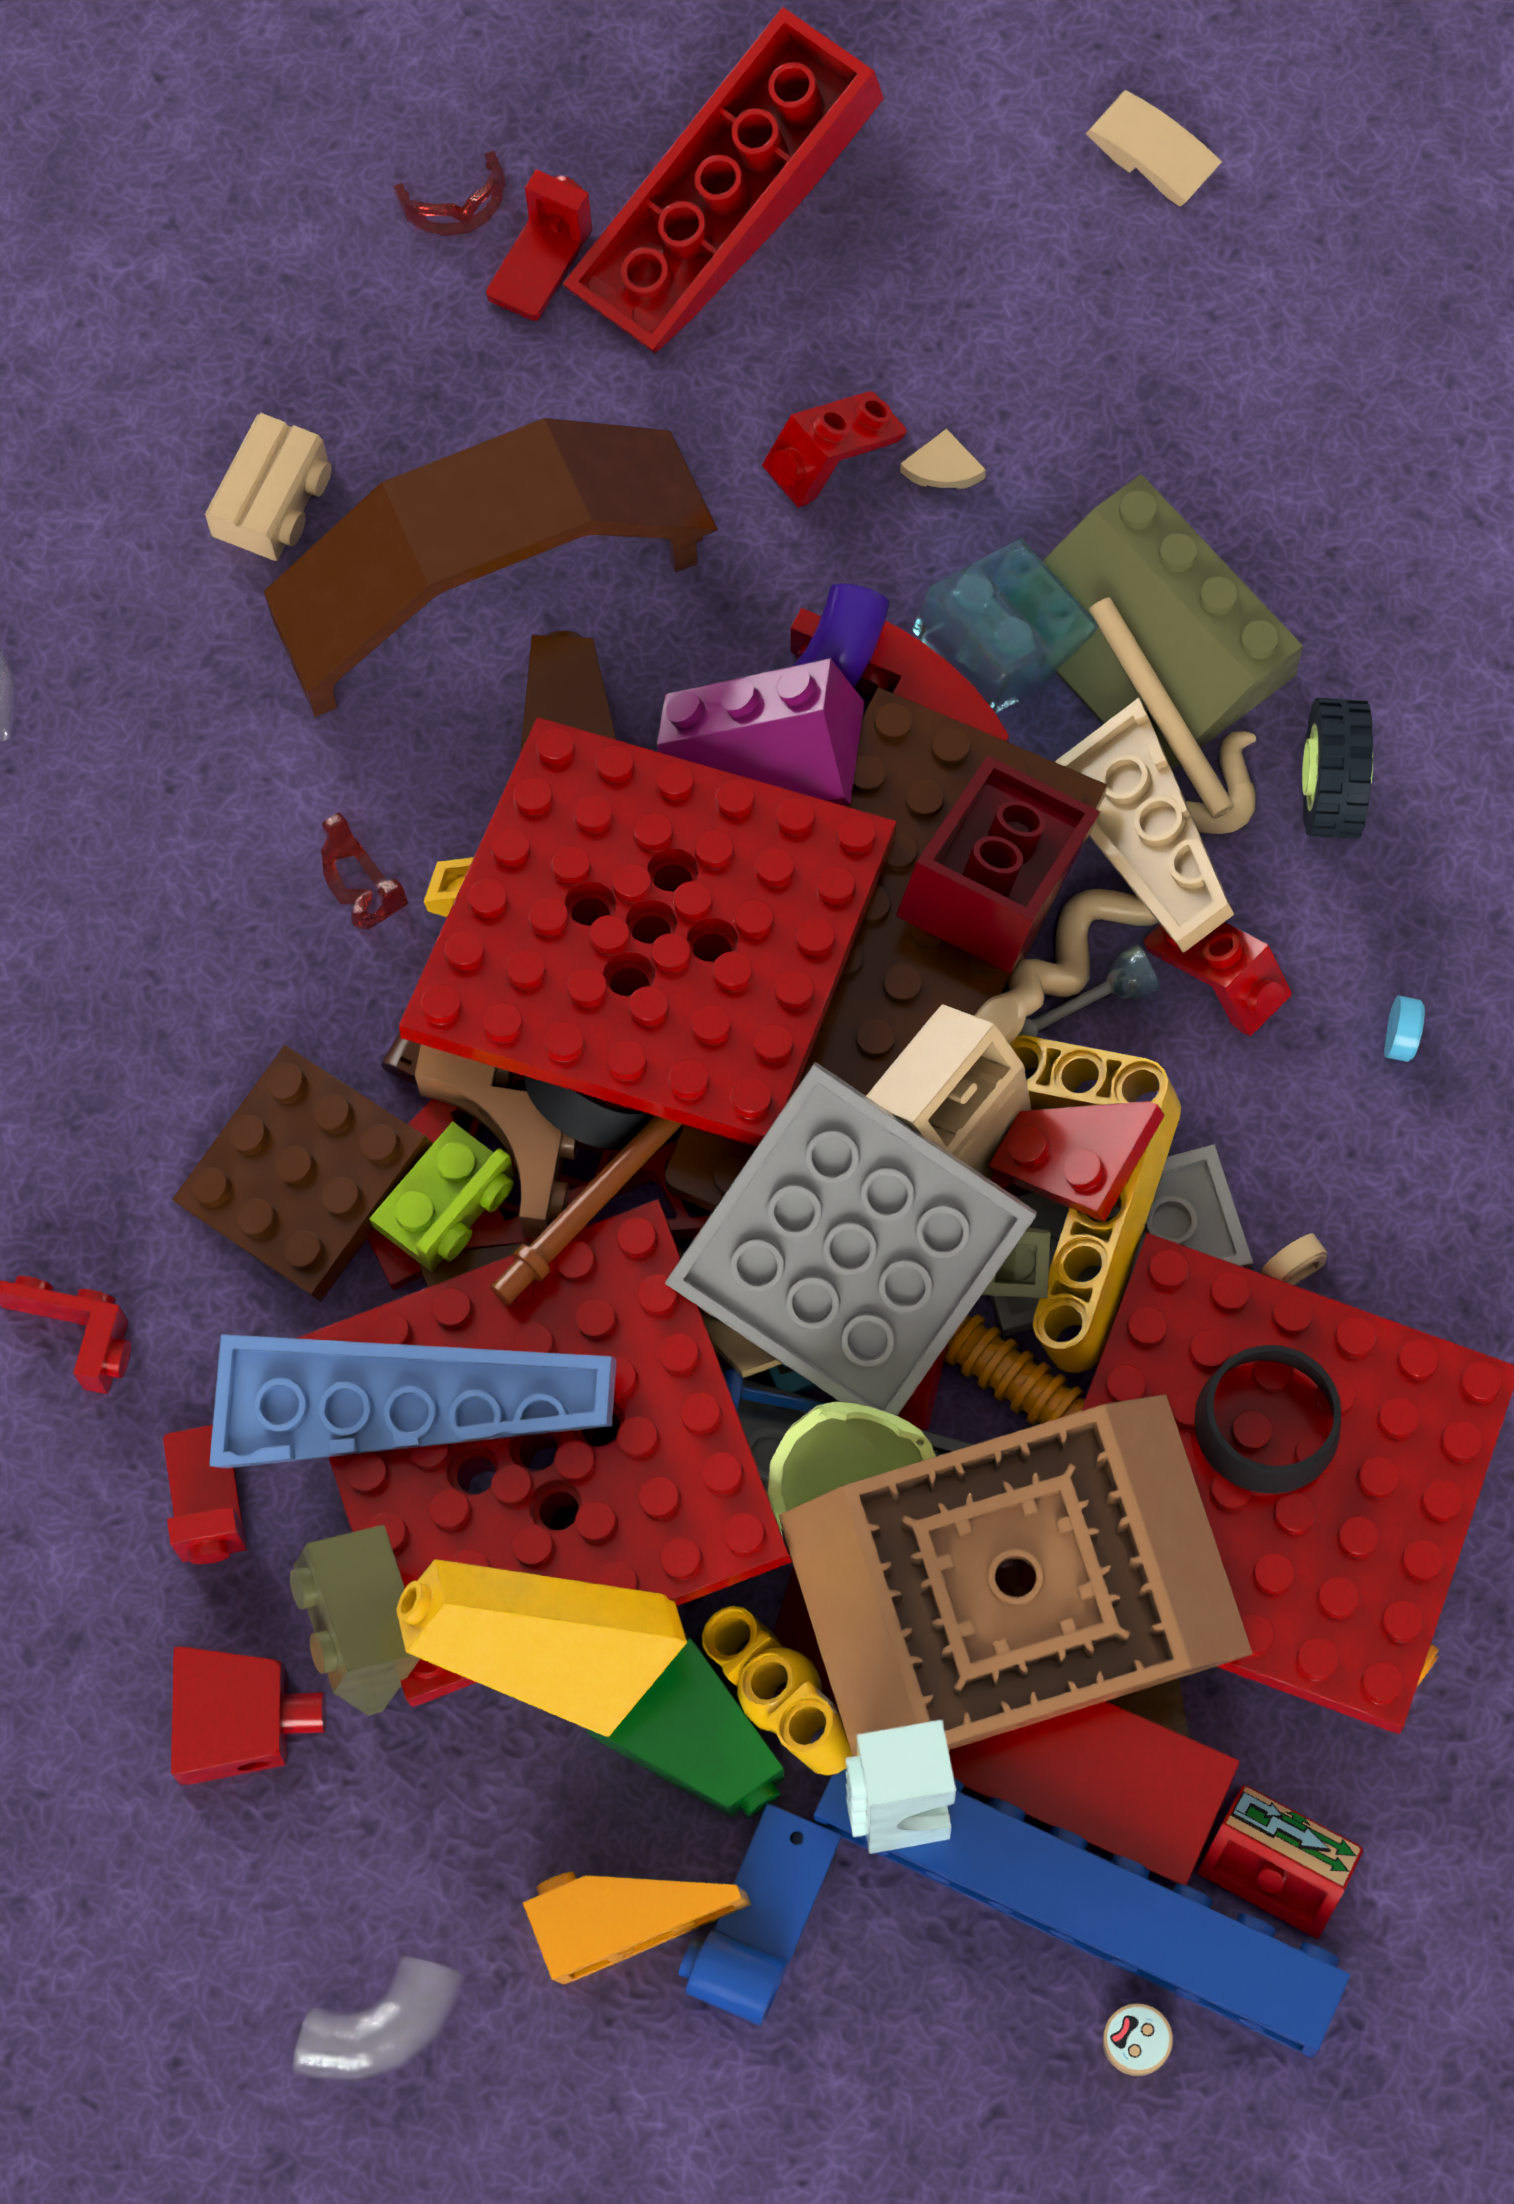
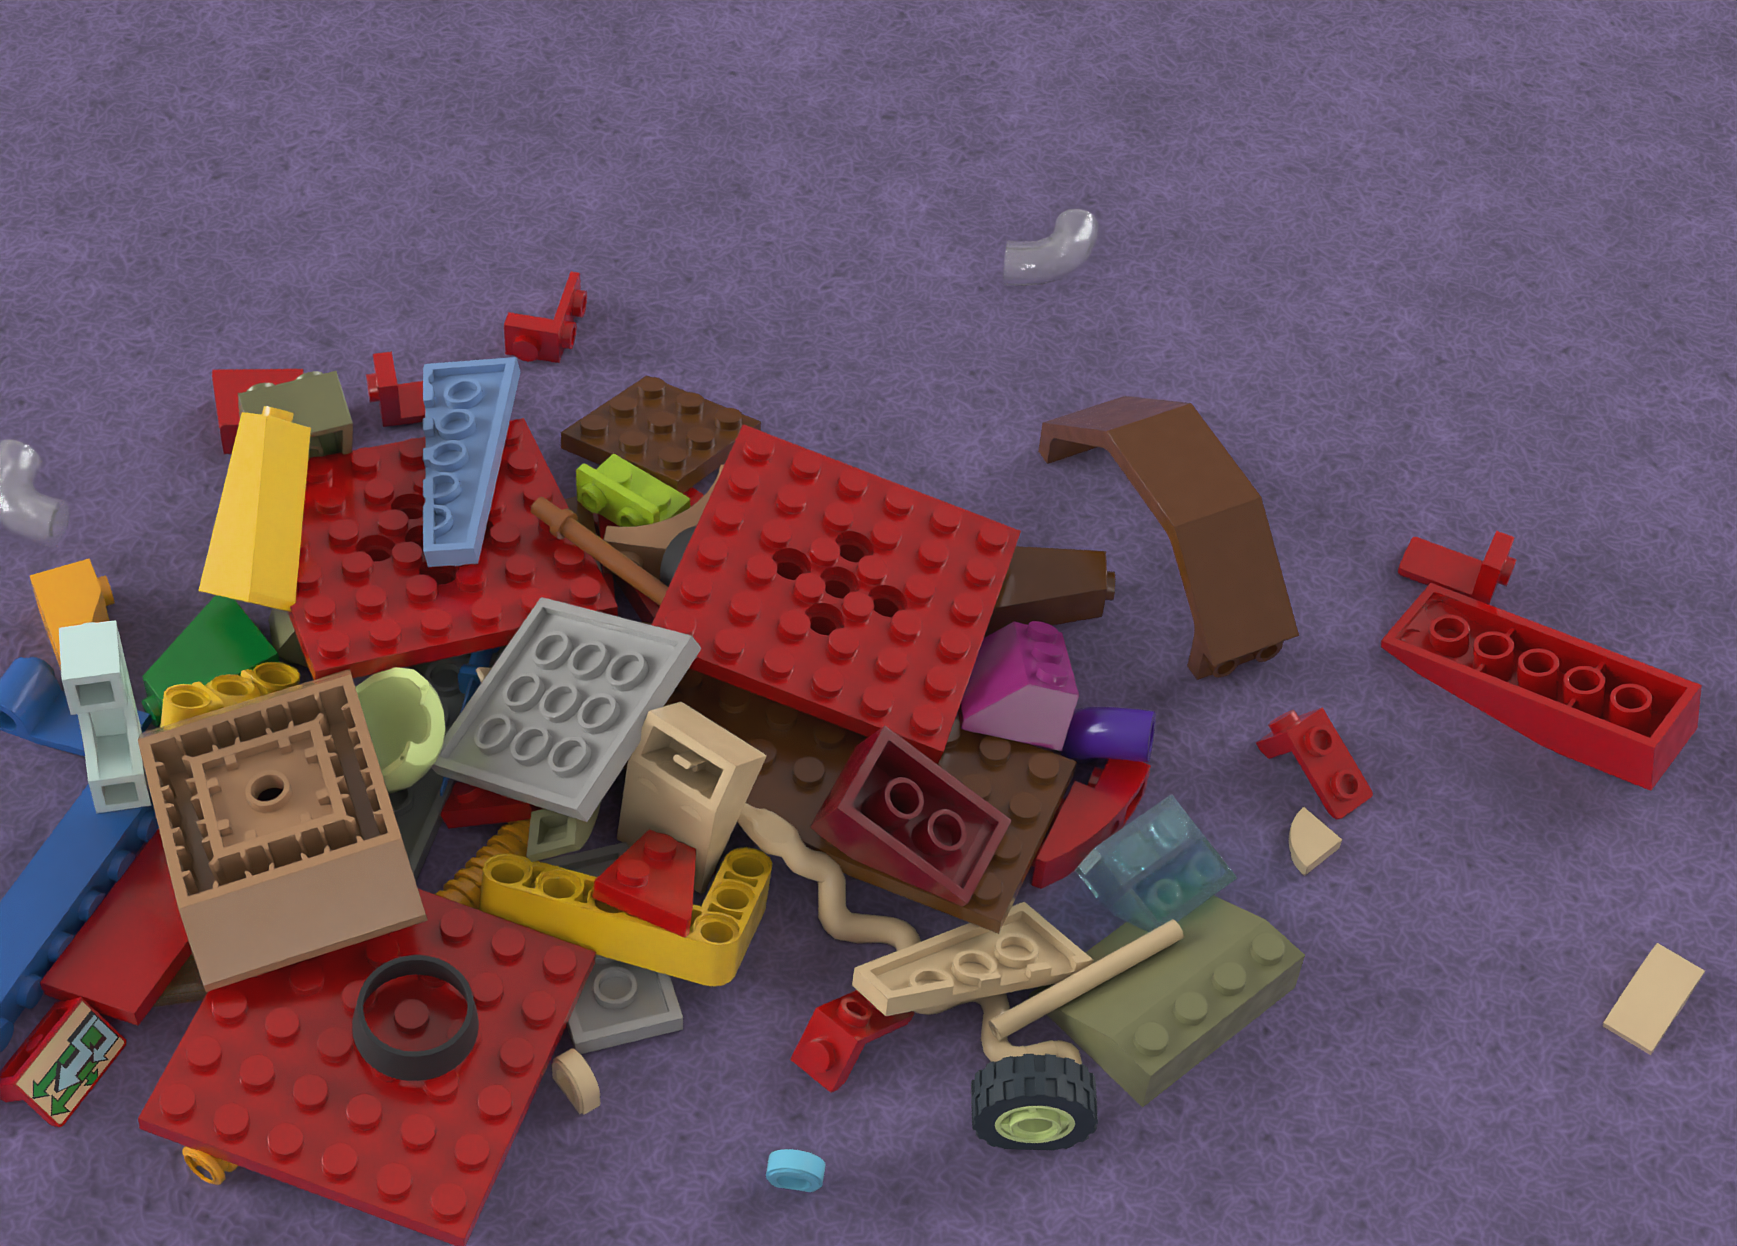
camera: 80 degrees right, 20 degrees down
(269, 487) = (1229, 406): tan brick -> none
(342, 844) = (928, 458): clear red helmet -> none
(416, 210) = (1475, 517): clear red helmet -> none
(1128, 976) = (836, 961): hinge -> none

